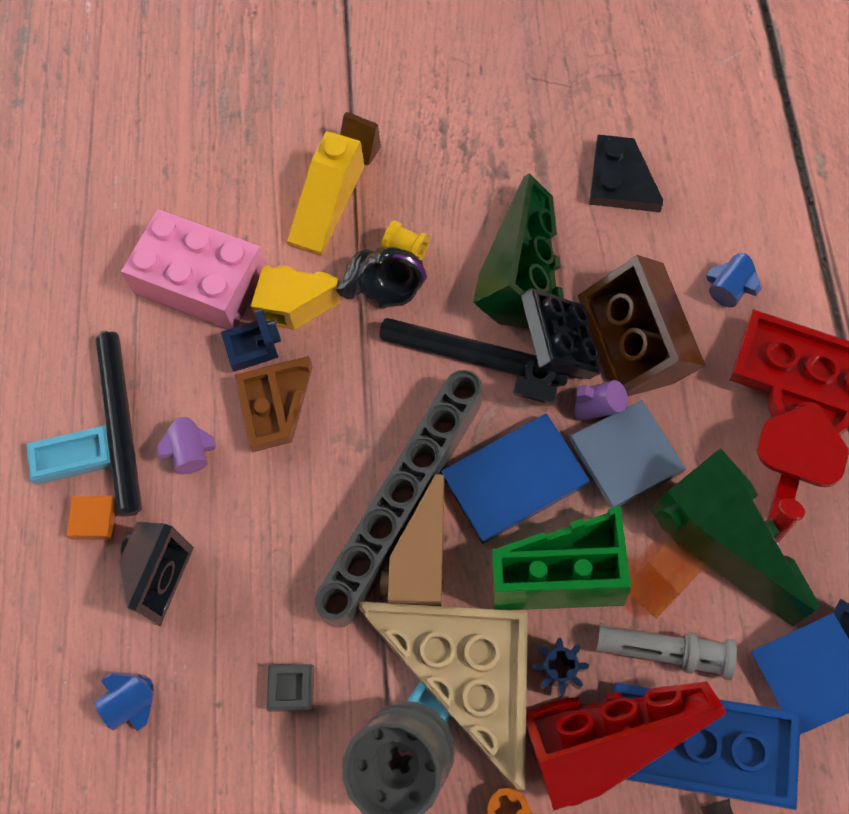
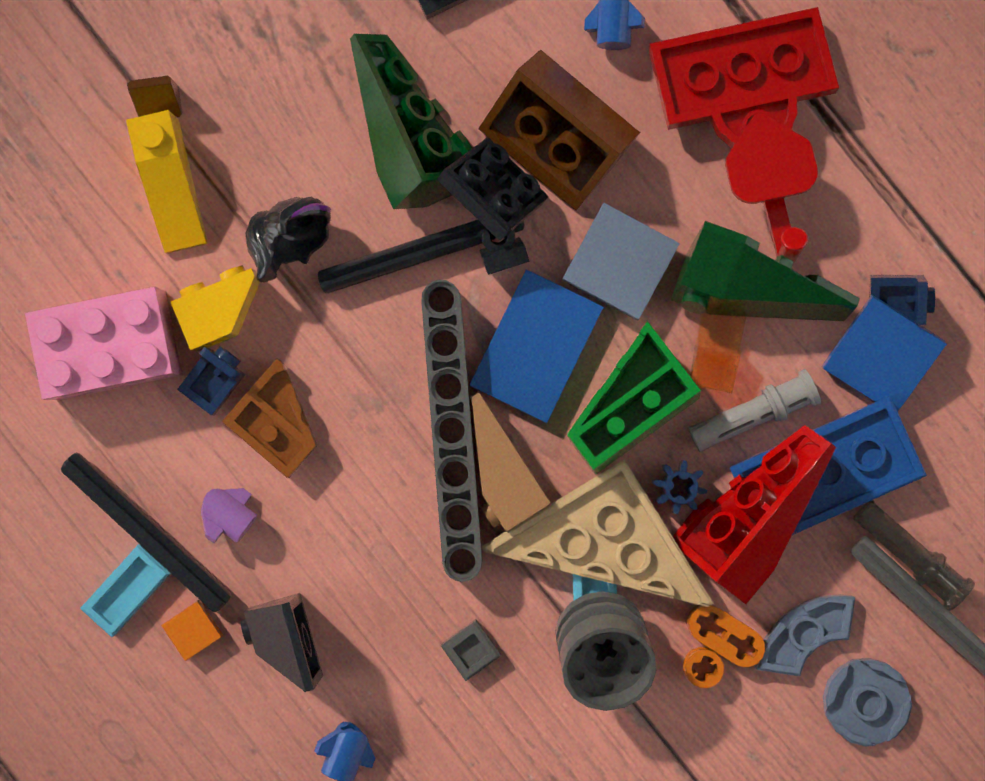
camera: 40 degrees left, 20 degrees up
(405, 239) = (282, 182): yellow bush -> none
(600, 400) = (567, 227): medium lavender piece -> none

